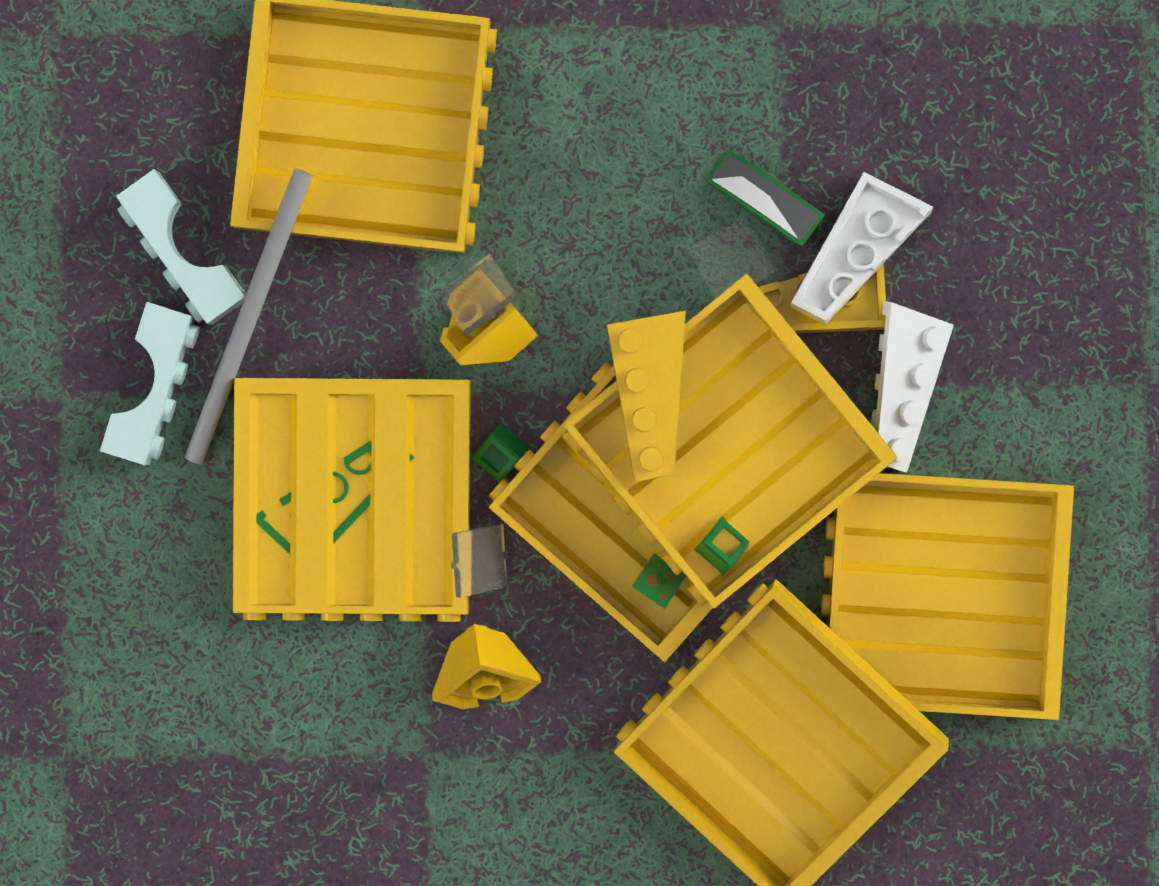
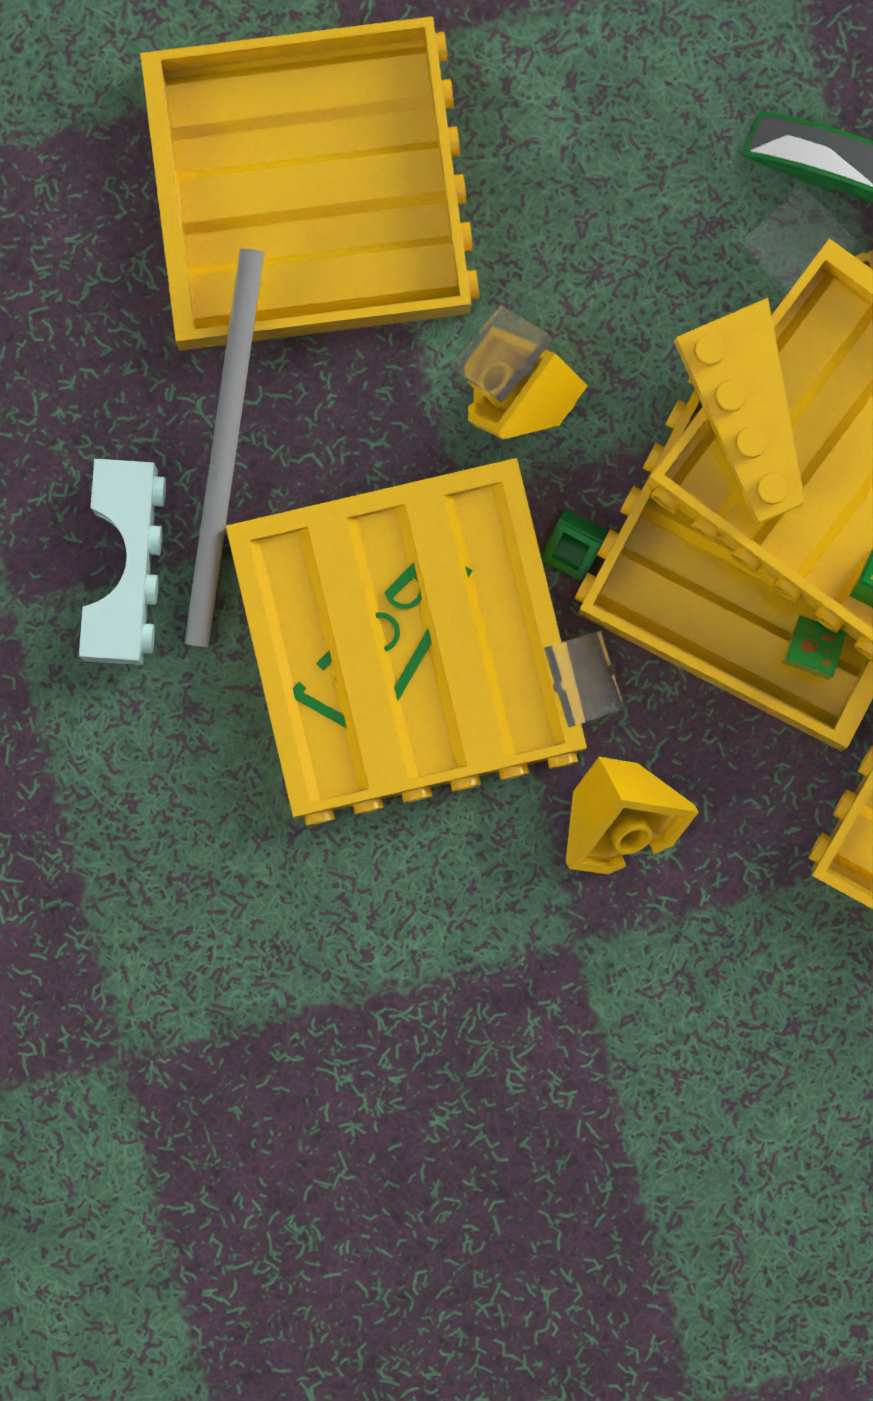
camera: 20 degrees left, 5 degrees down
(152, 208) = (74, 346): light aqua arch -> none

